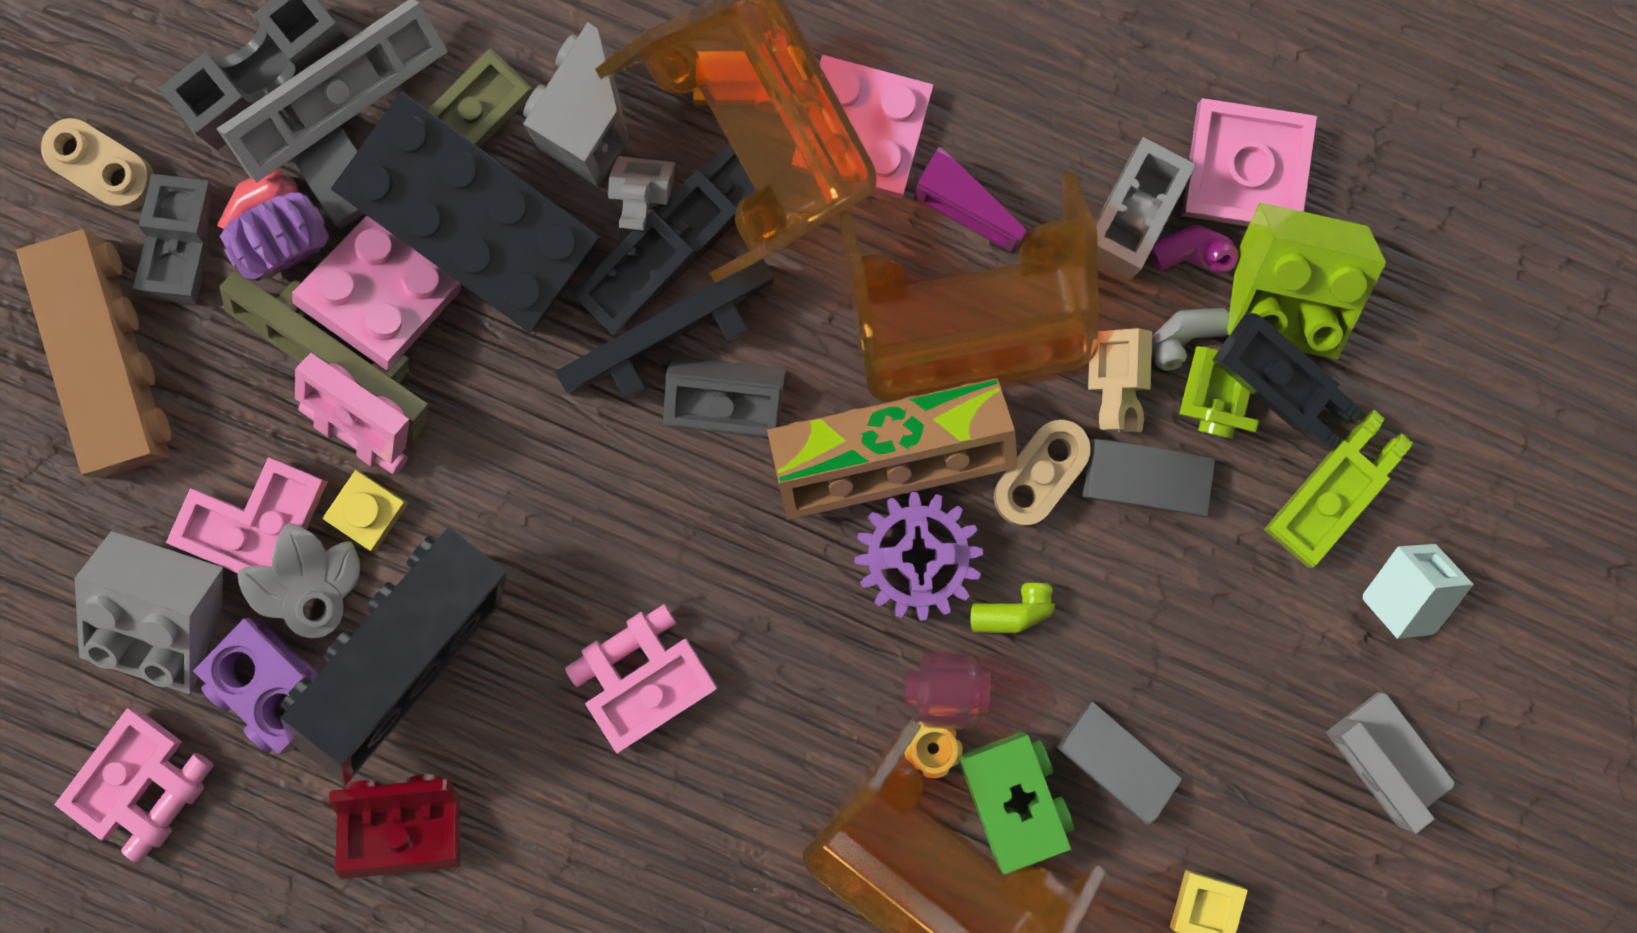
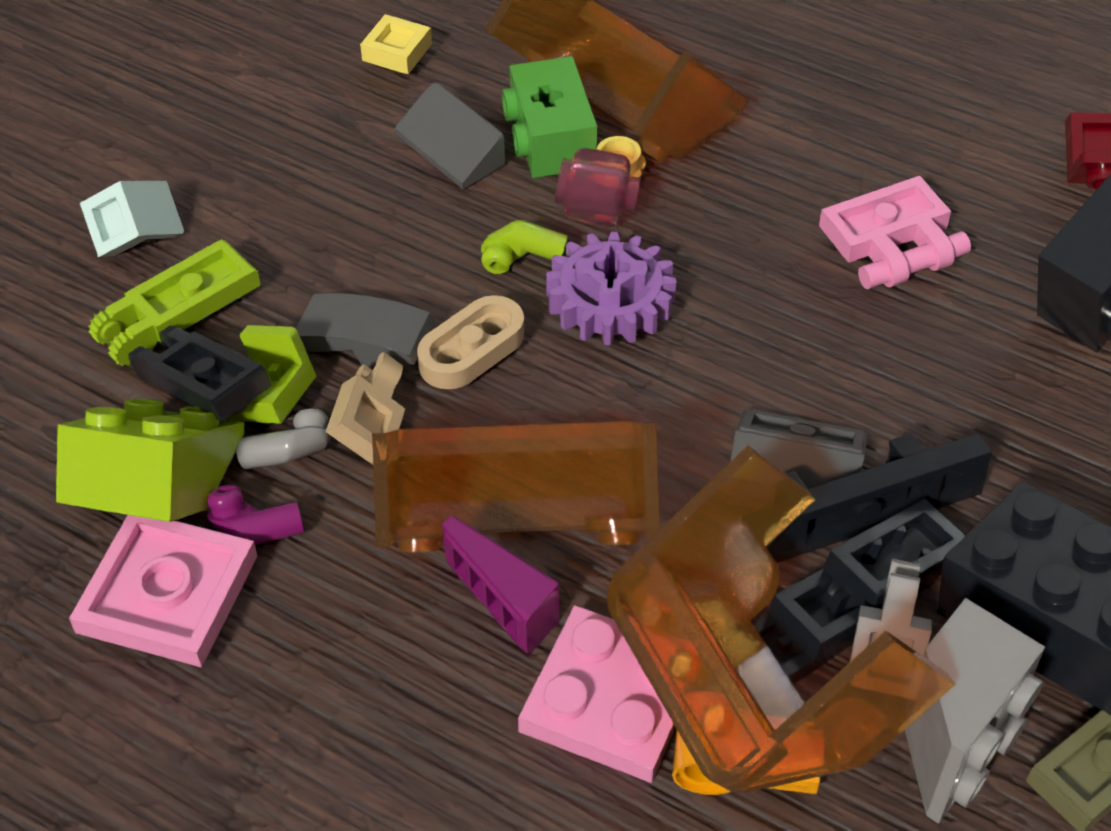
camera: 170 degrees left, 35 degrees down
(893, 448) = (626, 361): medium nougat brick -> none
(1139, 207) = (308, 539): light grey brick -> none
(1391, 761) = (206, 120): light grey panel -> none

